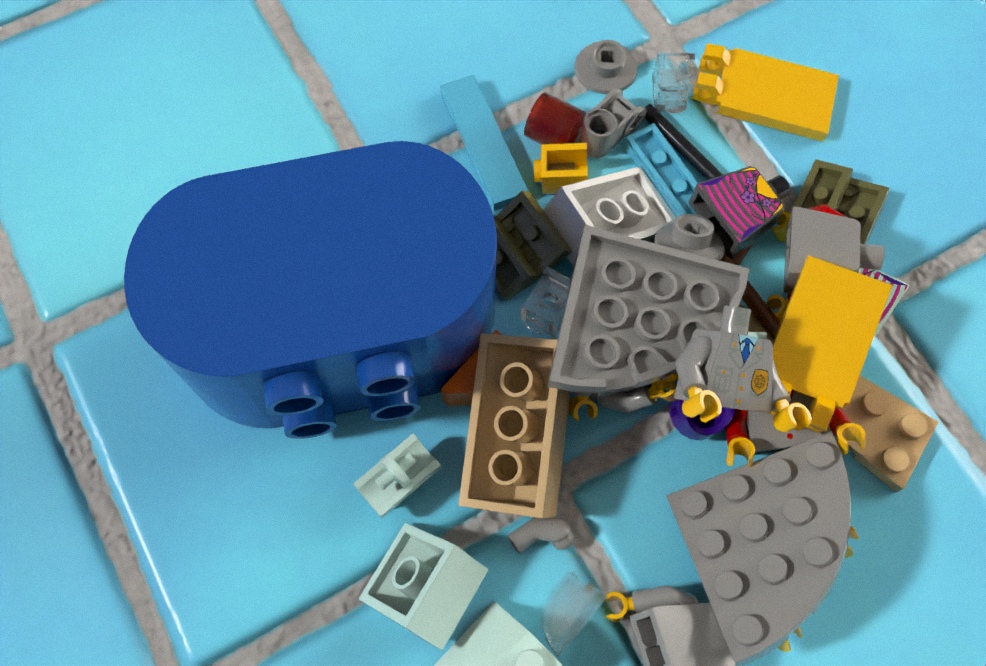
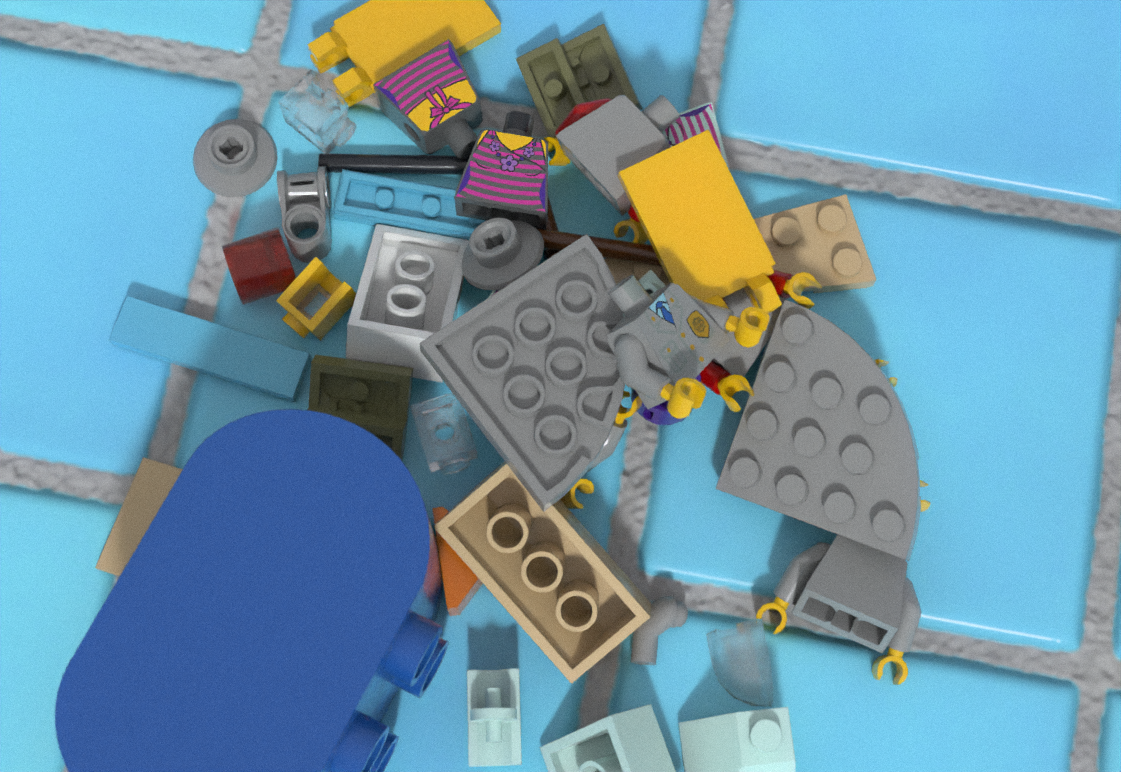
camera: 50 degrees left, 5 degrees up
(743, 132) = (433, 101): none -> torso

